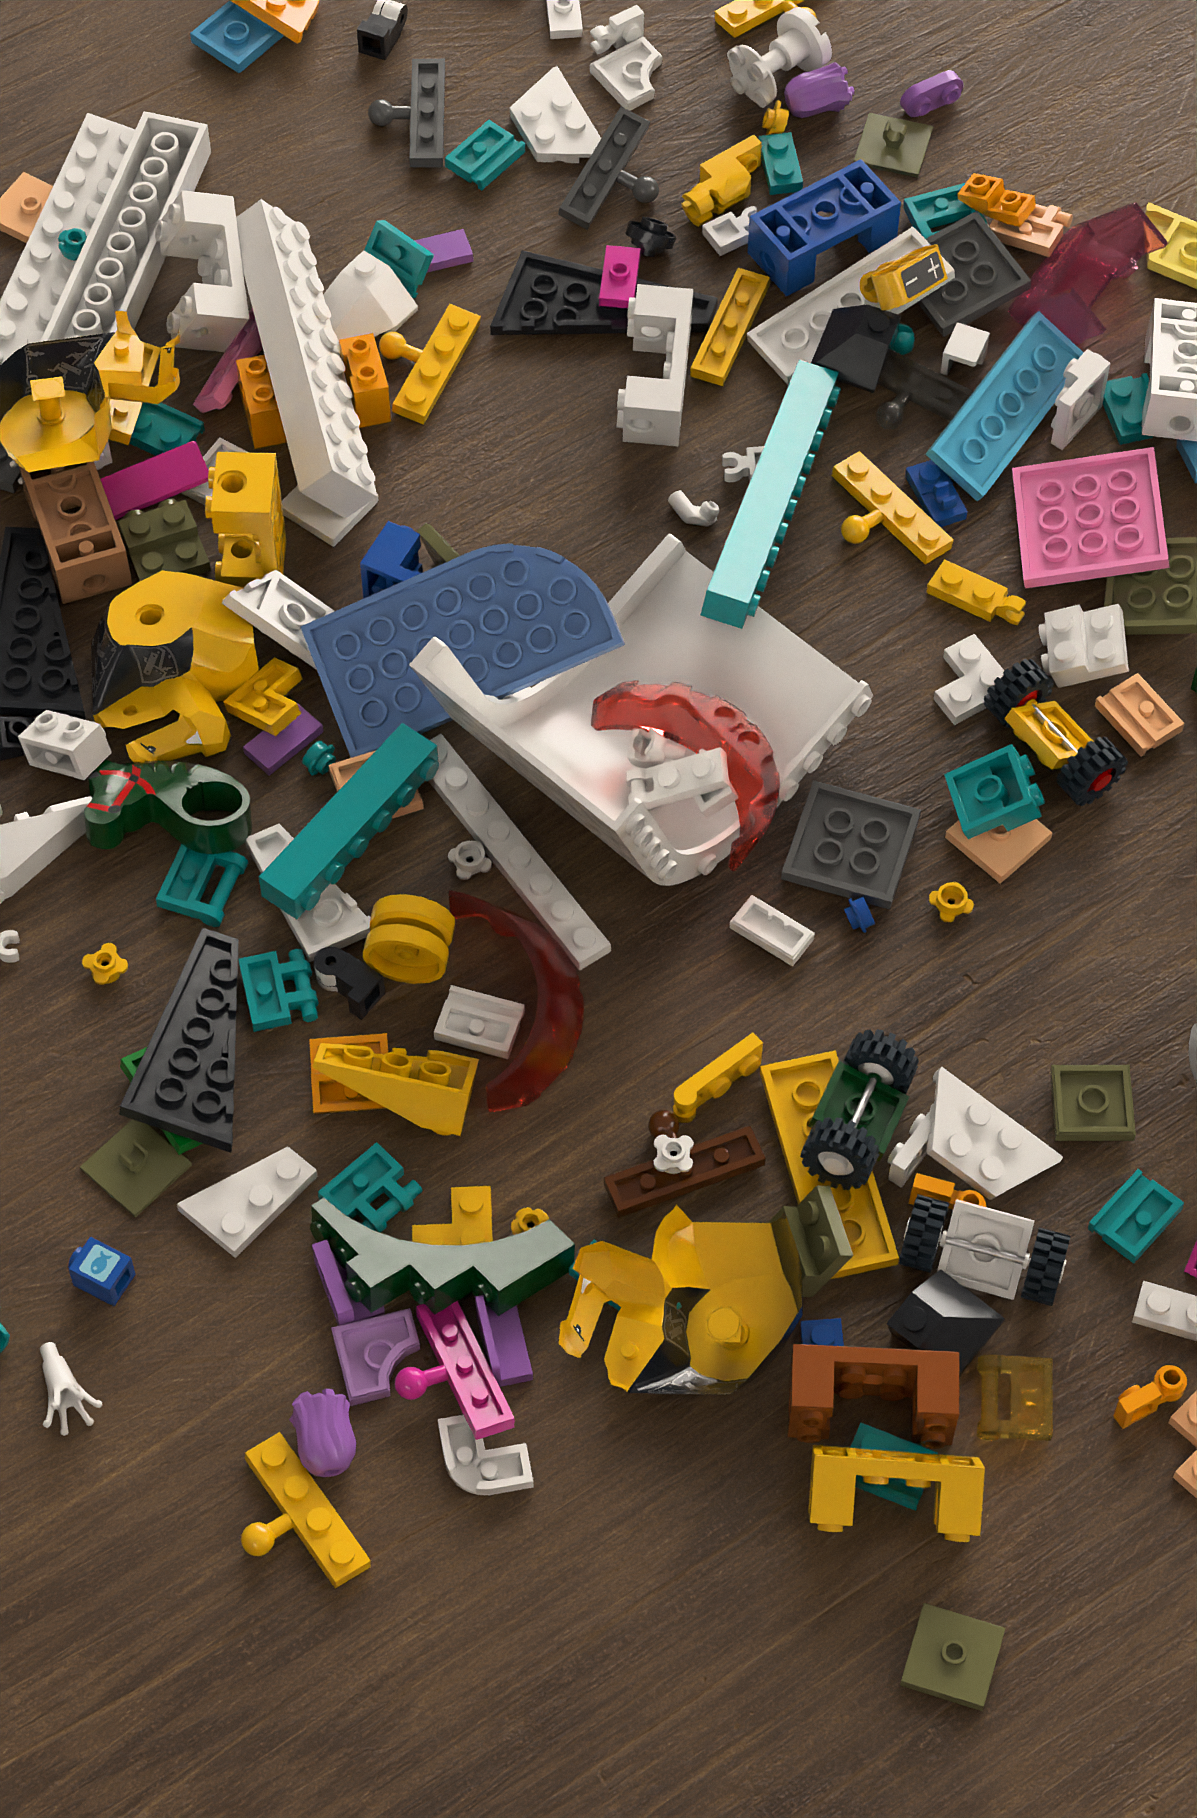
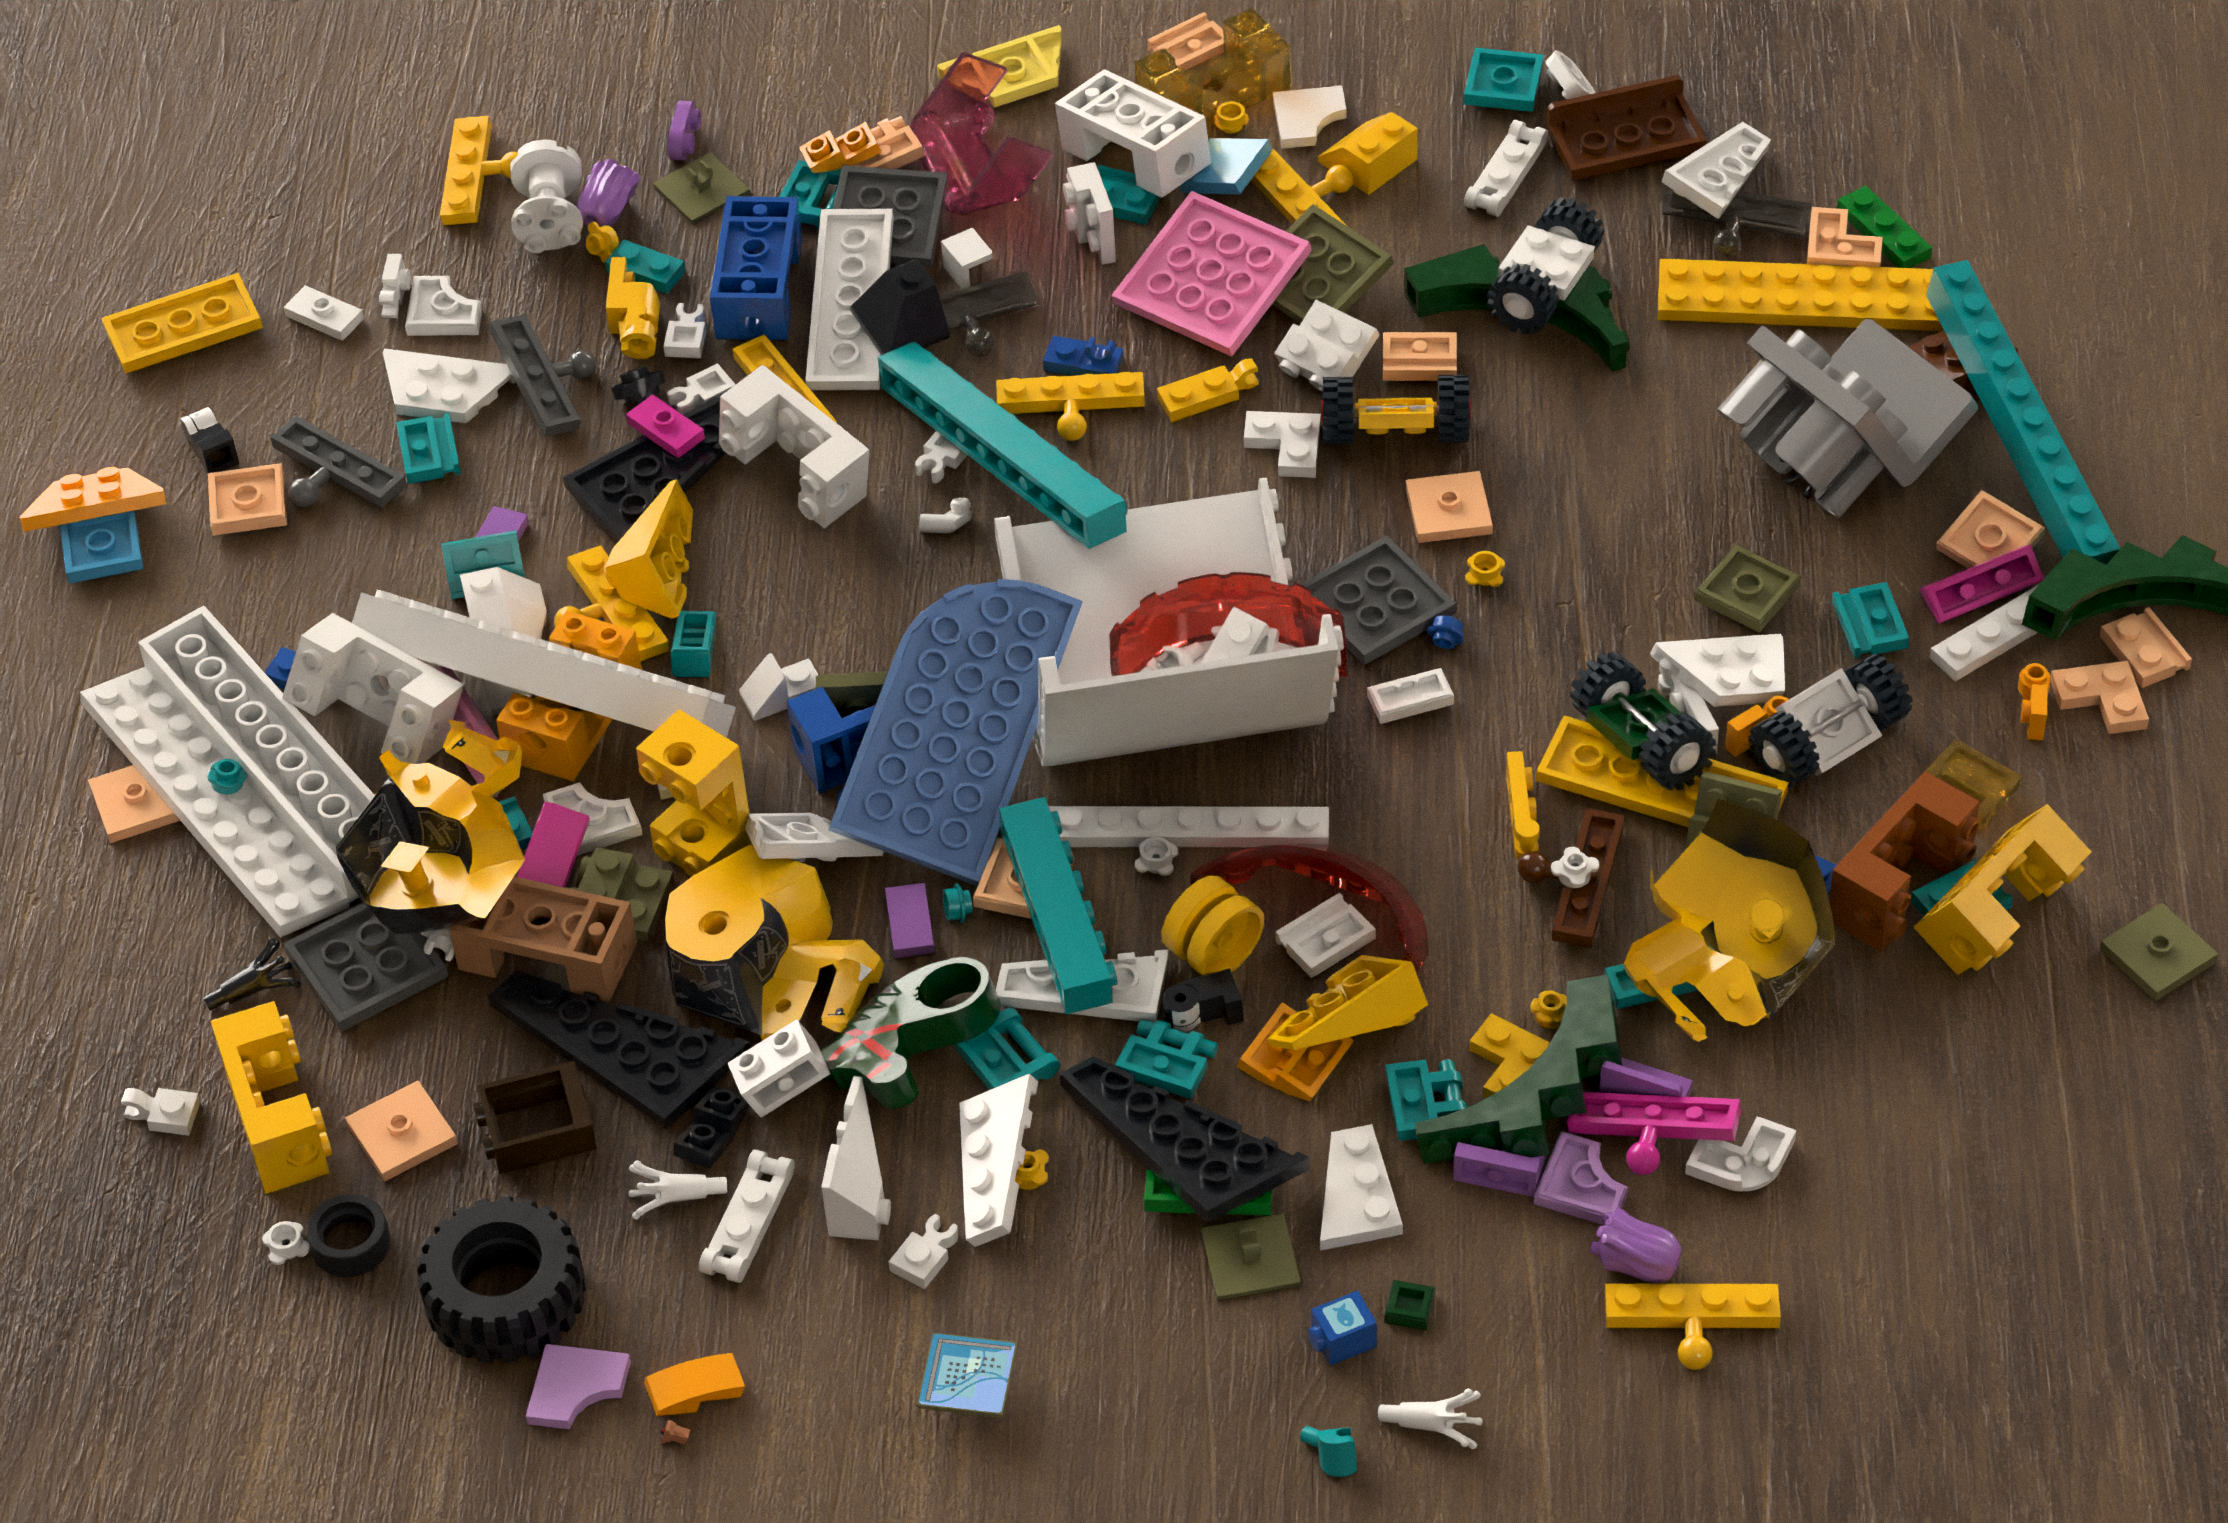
camera: 50 degrees left, 10 degrees down
(91, 934) = (991, 1155): none -> white wing
(165, 1304) = (1409, 1305): none -> dark green tile
(263, 700) = (860, 910): yellow plate -> none
(347, 85) = (247, 499): none -> light nougat plate
(423, 447) = (693, 647): none -> teal slope
(446, 517) = (771, 686): none -> white slope
(485, 354) = (651, 555): none -> yellow wedge
(687, 275) = (700, 388): none -> white plate
(904, 279) = (883, 235): yellow beam -> none
(945, 1318) = (1865, 786): black slope -> none
(995, 792) = (1419, 476): teal plate -> none
(1005, 407) = (1051, 261): medium azure plate -> none

